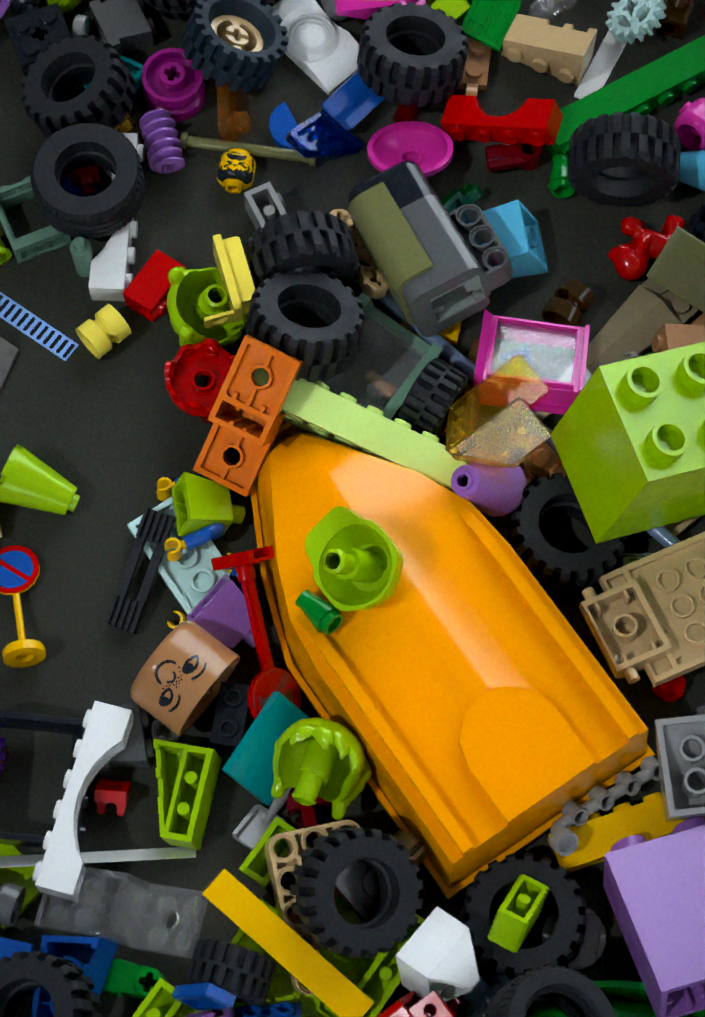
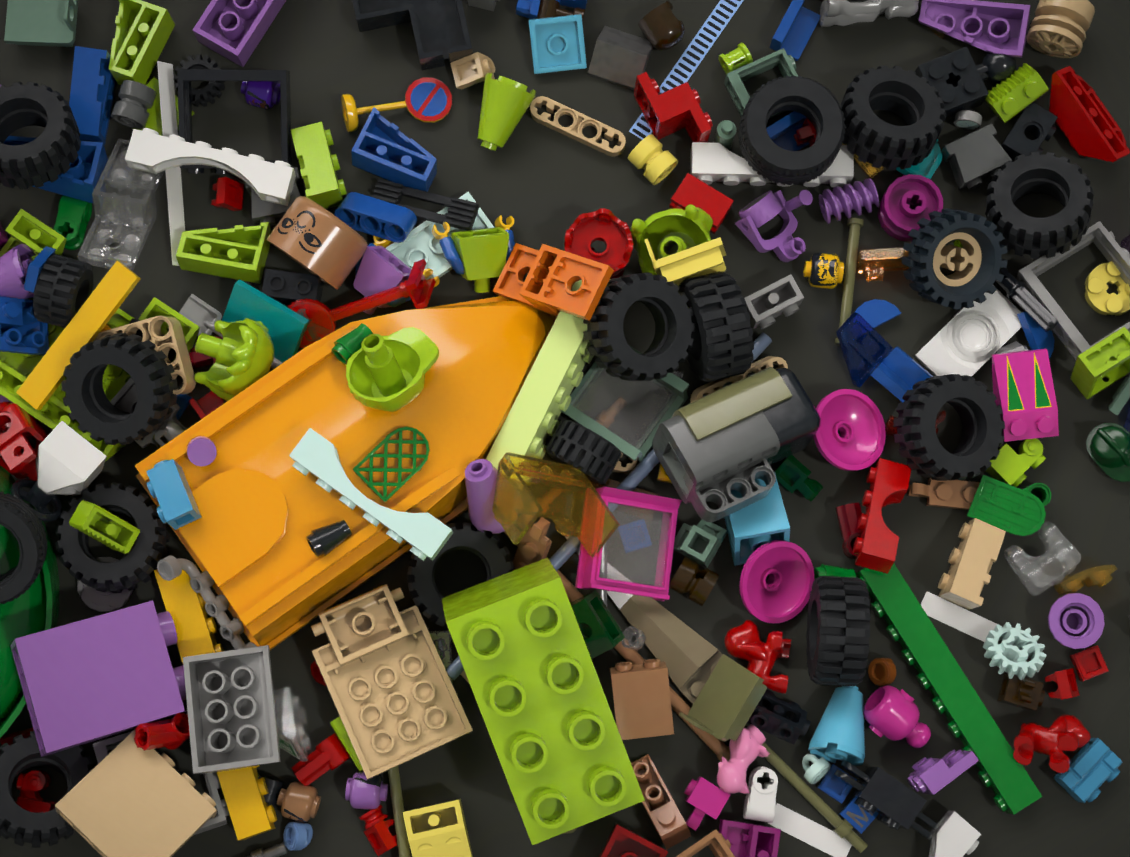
camera: 85 degrees right, 10 degrees up
(51, 294) = (672, 109): none -> red bracket
(59, 412) = (580, 121): none -> tan beam
(77, 688) = (318, 165): none -> lime wedge
(80, 603) = (393, 155): none -> blue wedge
(151, 620) = (376, 217): none -> blue beam
(167, 216) = (763, 210): none -> medium lavender piece
(369, 811) = (206, 404): none -> red panel
(440, 779) = (201, 451): none -> medium lavender tile
(456, 638) = (420, 530): none -> light aqua arch
(464, 551) = (370, 483): none -> green window
(491, 806) = (173, 494): none -> dark azure brick
(525, 296) = (699, 541): none -> sand green brick
(541, 640) = (328, 537): none -> black cone
(568, 224) = (788, 582): none -> dark pink dish

